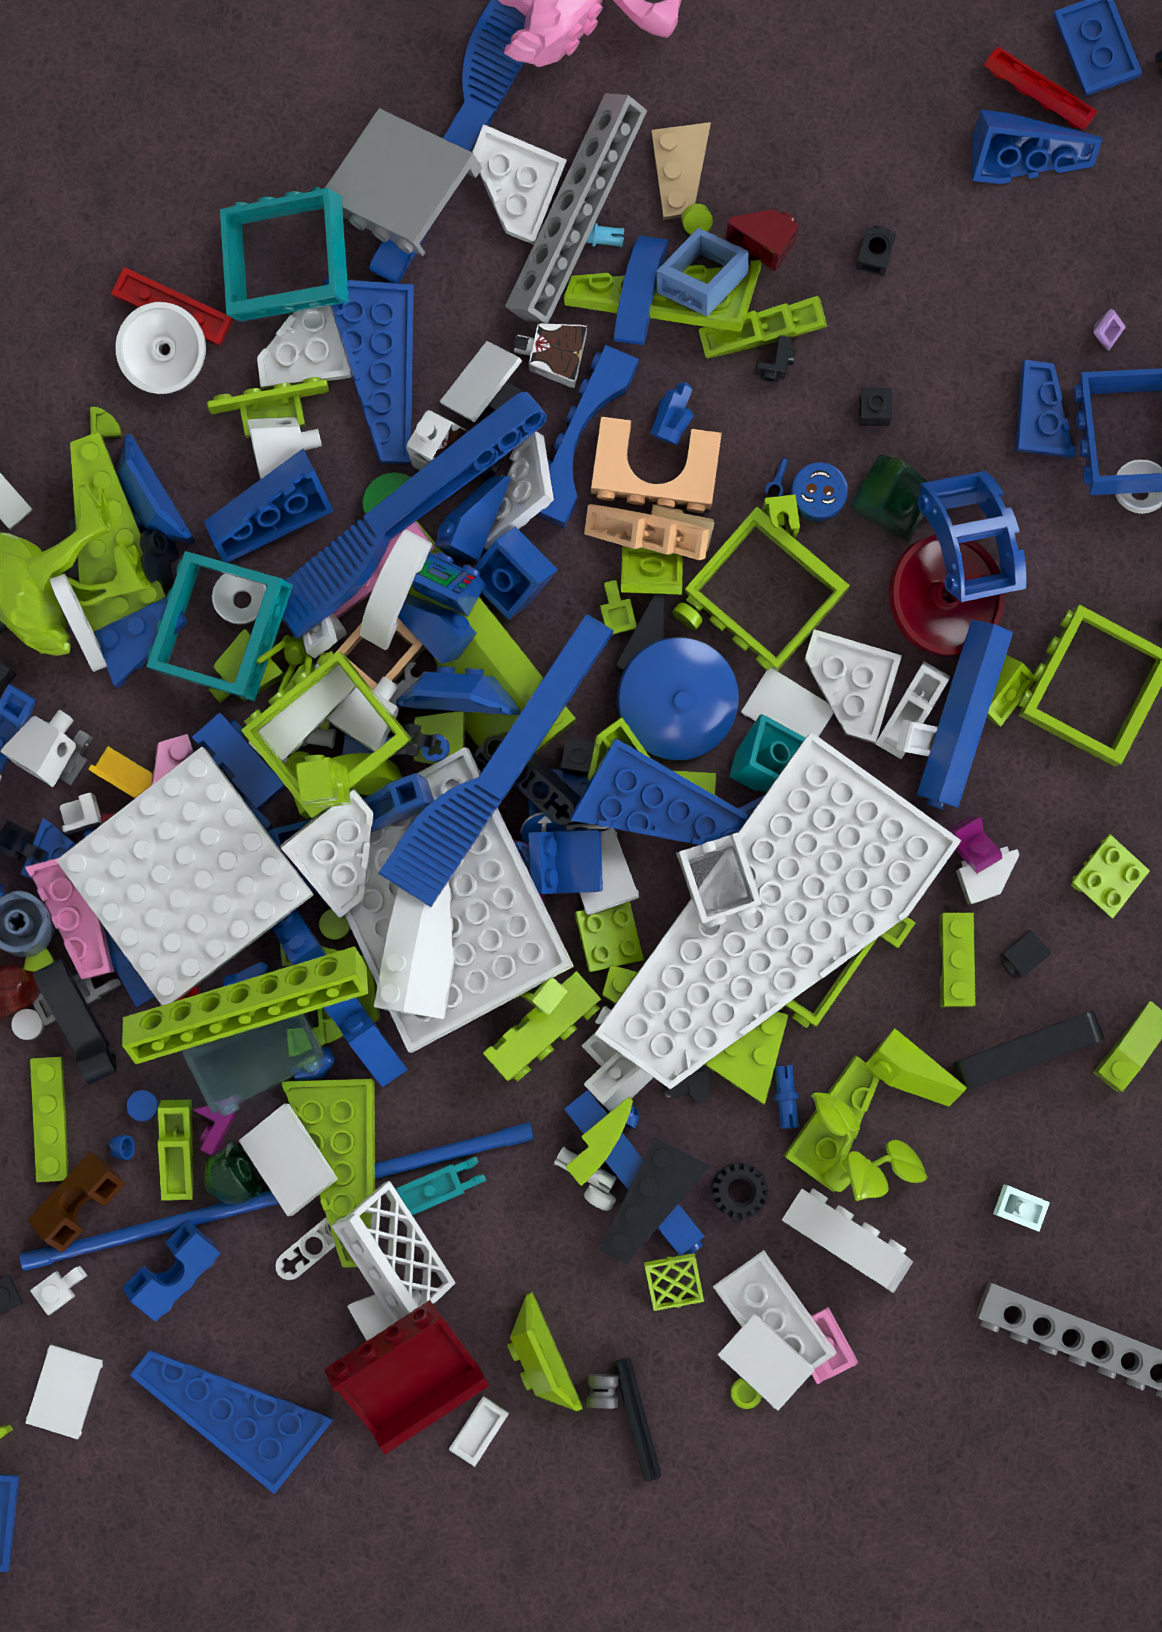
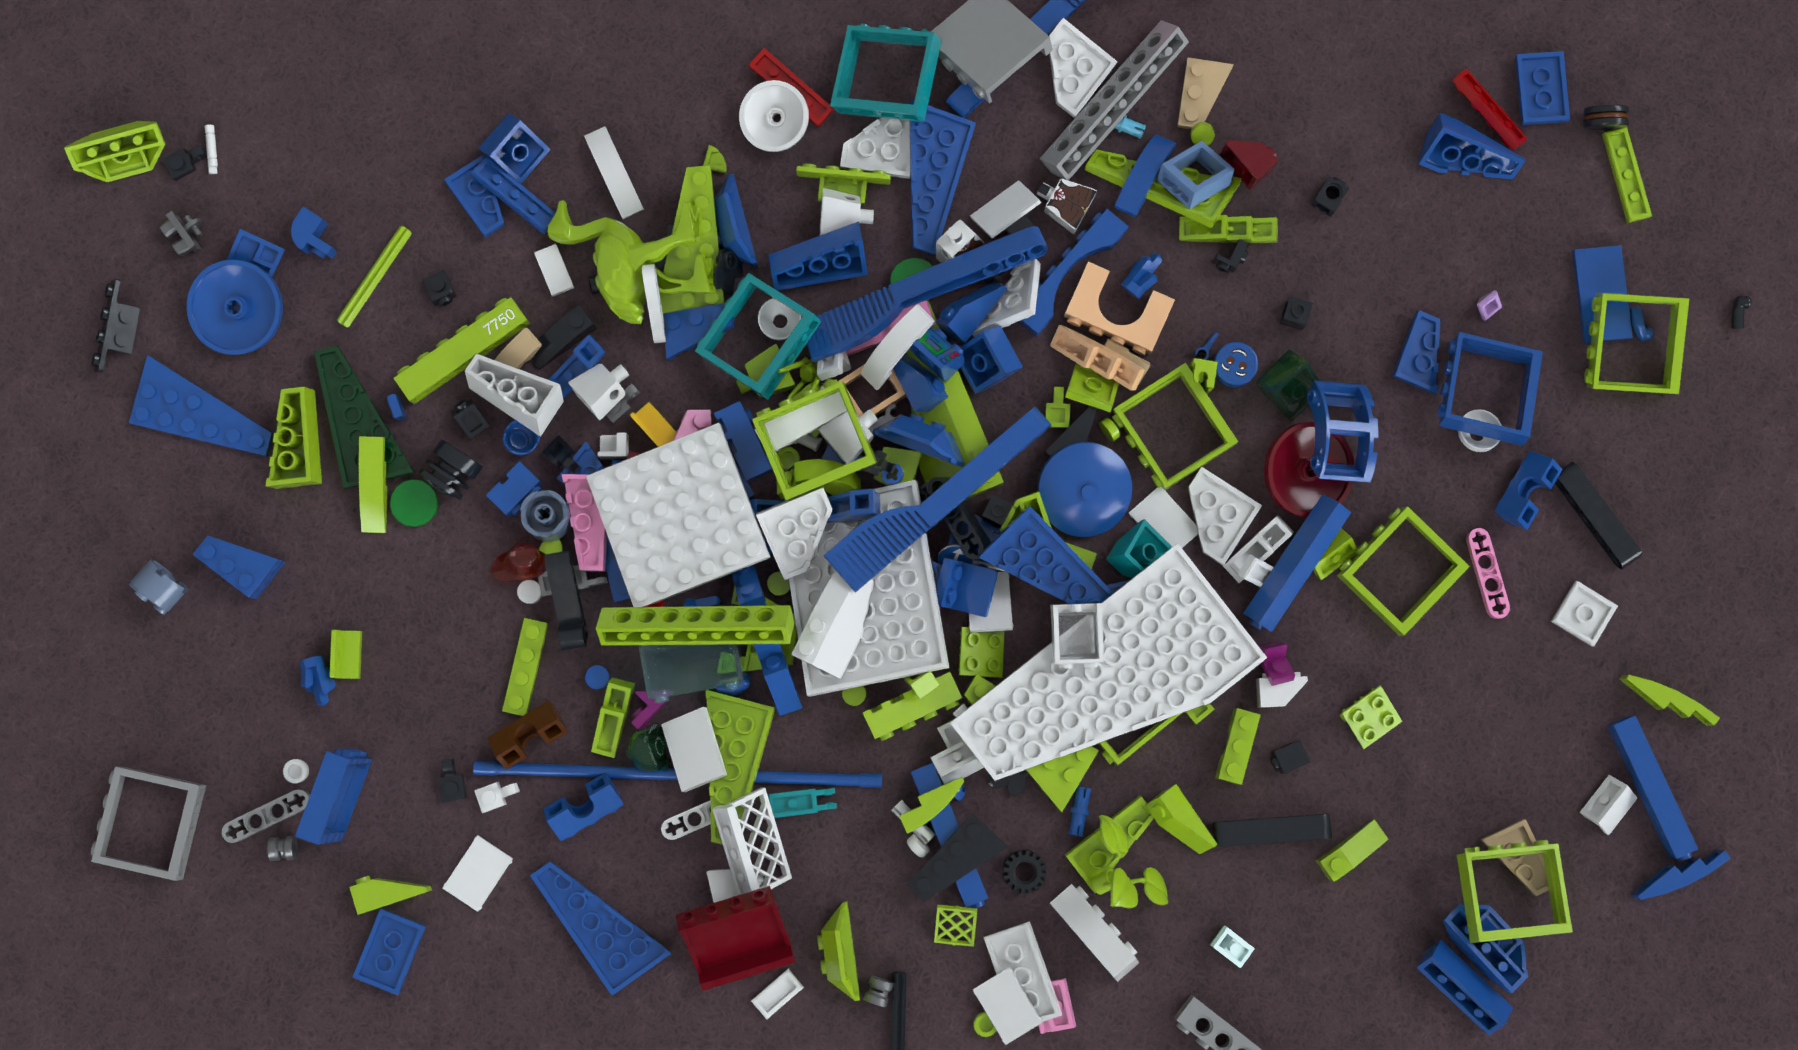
camera: 15 degrees right, 0 degrees up
(122, 1147) = (570, 707): blue hinge -> none
(323, 782) = (802, 476): lime arch -> none
(467, 1035) = (854, 696): none -> lime tile

